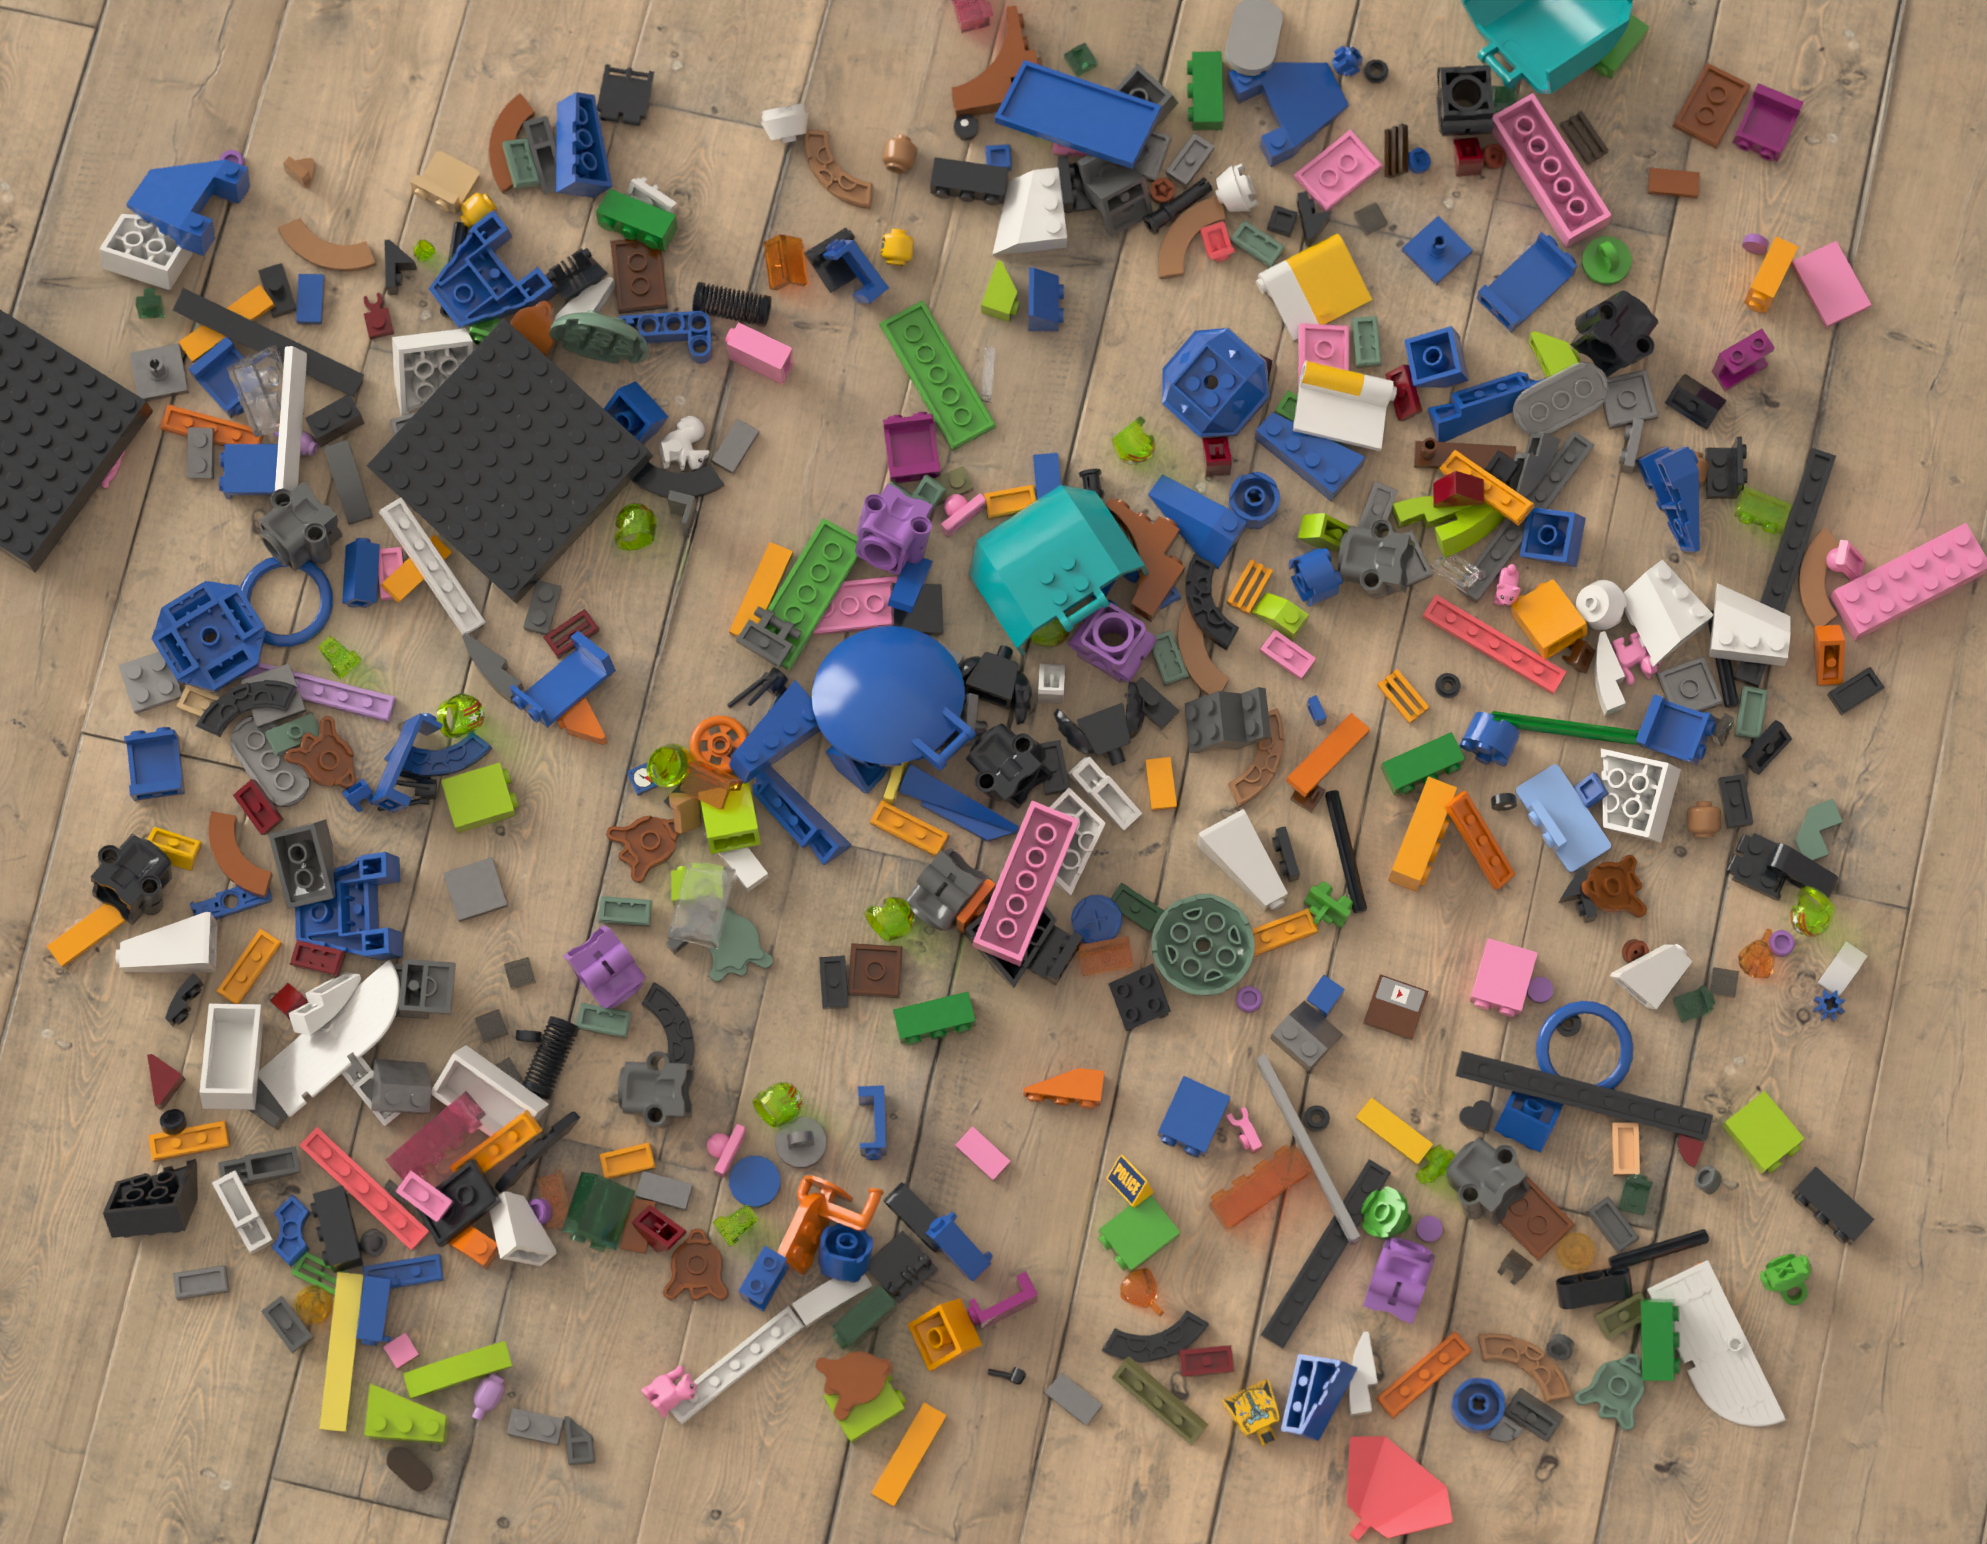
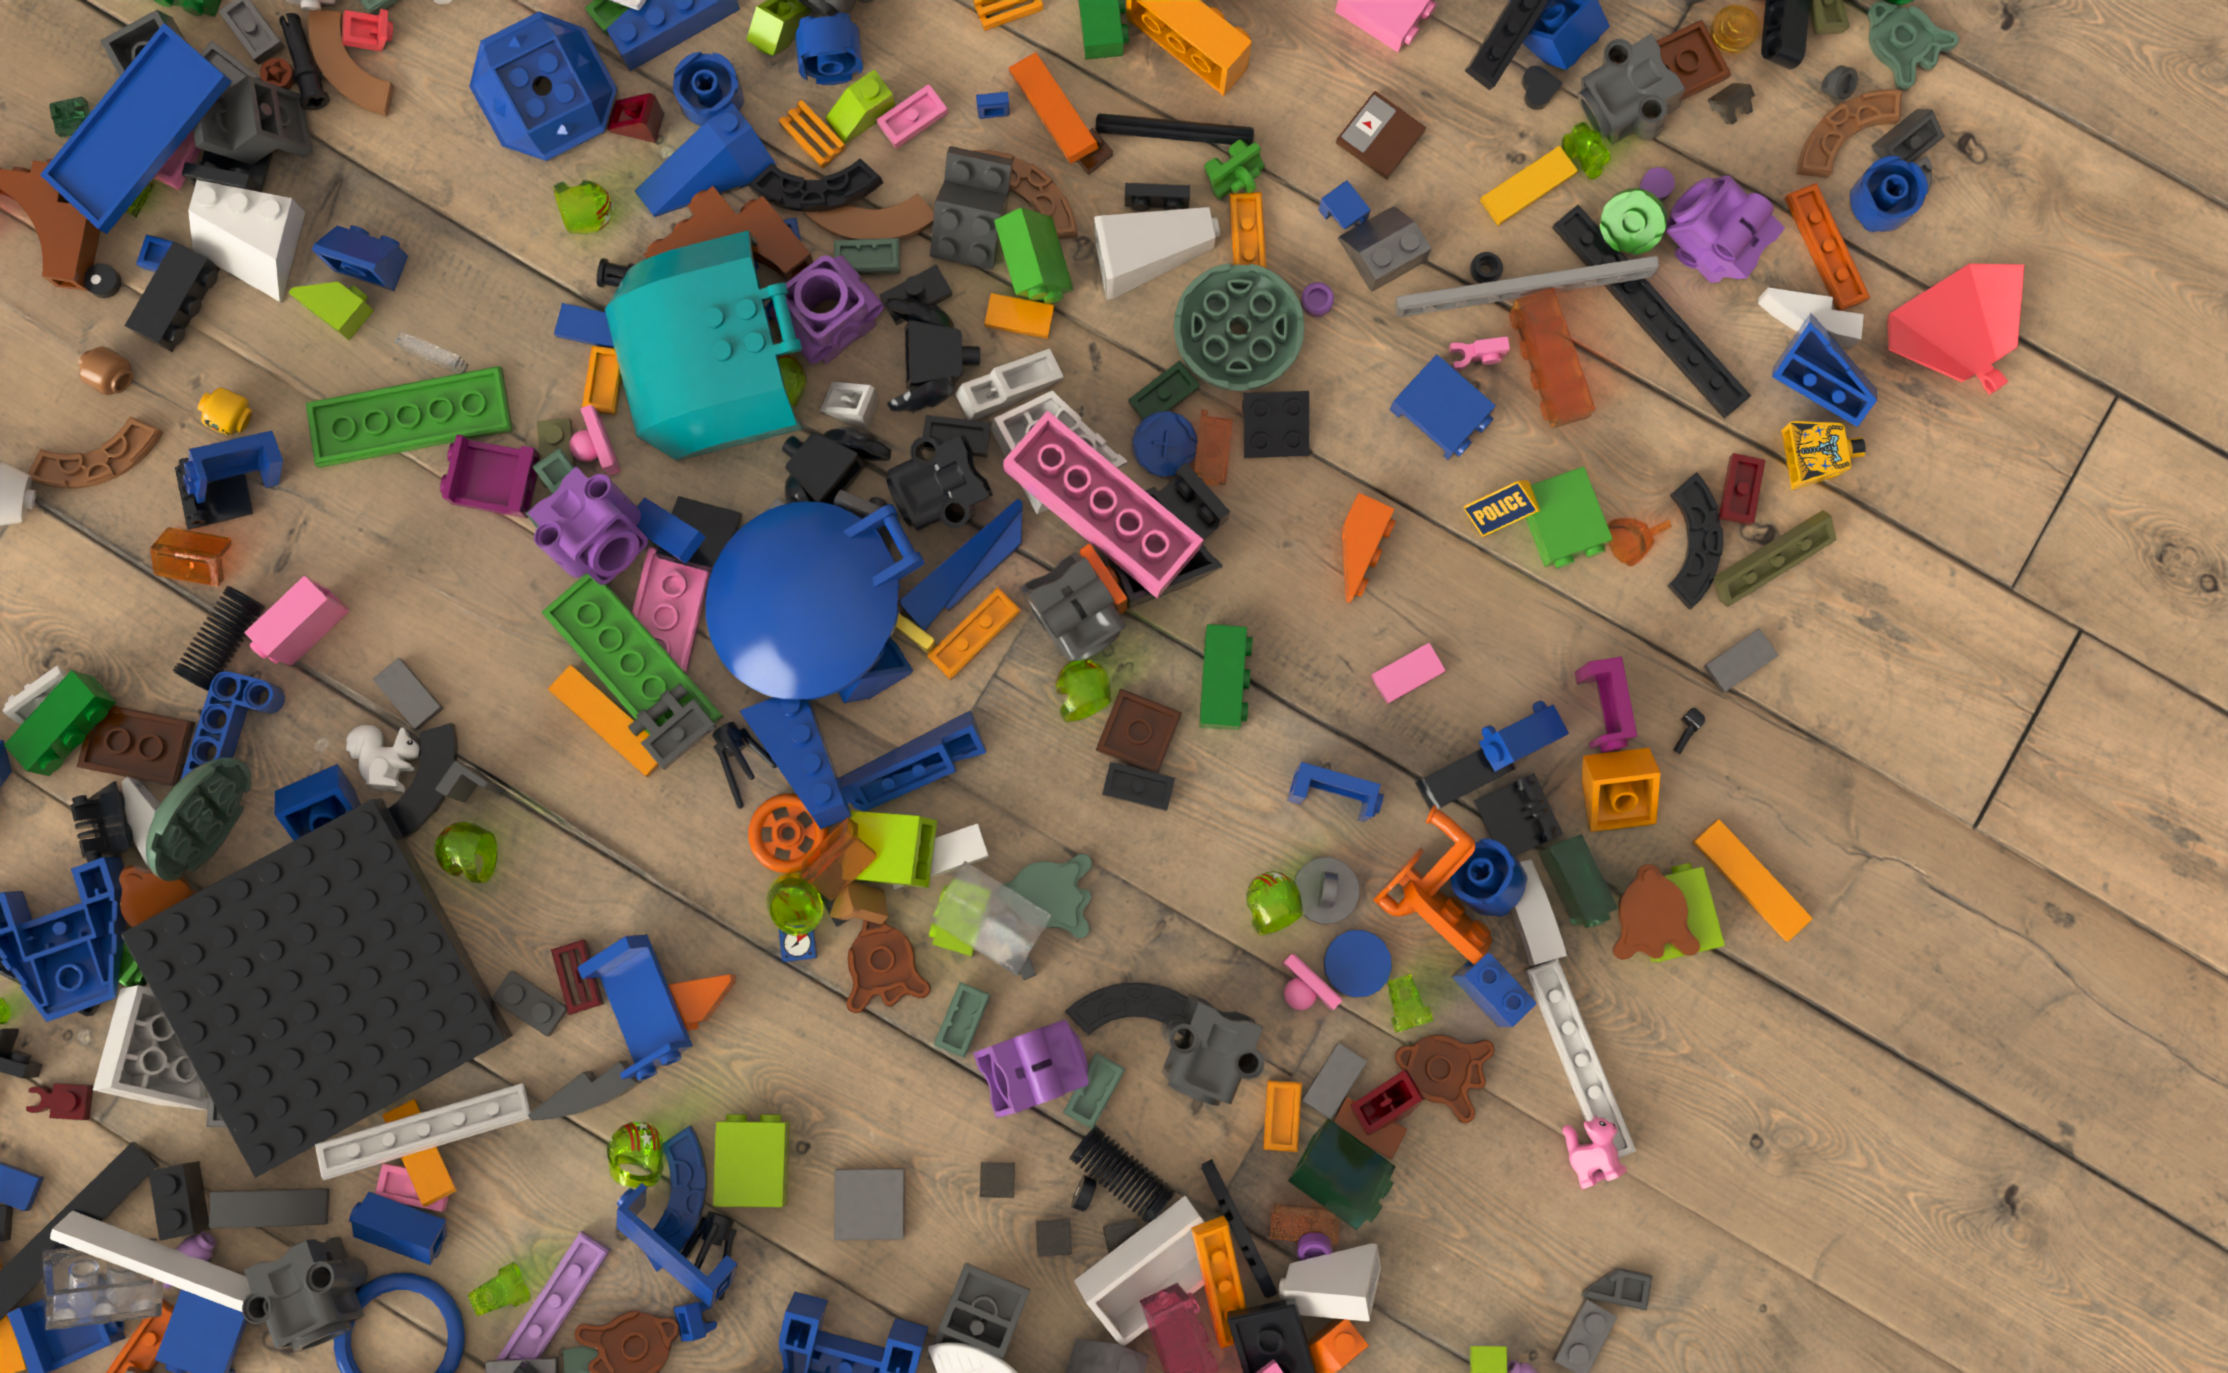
camera: 75 degrees left, 5 degrees up
(1204, 777) = (1033, 255): none -> bright green brick

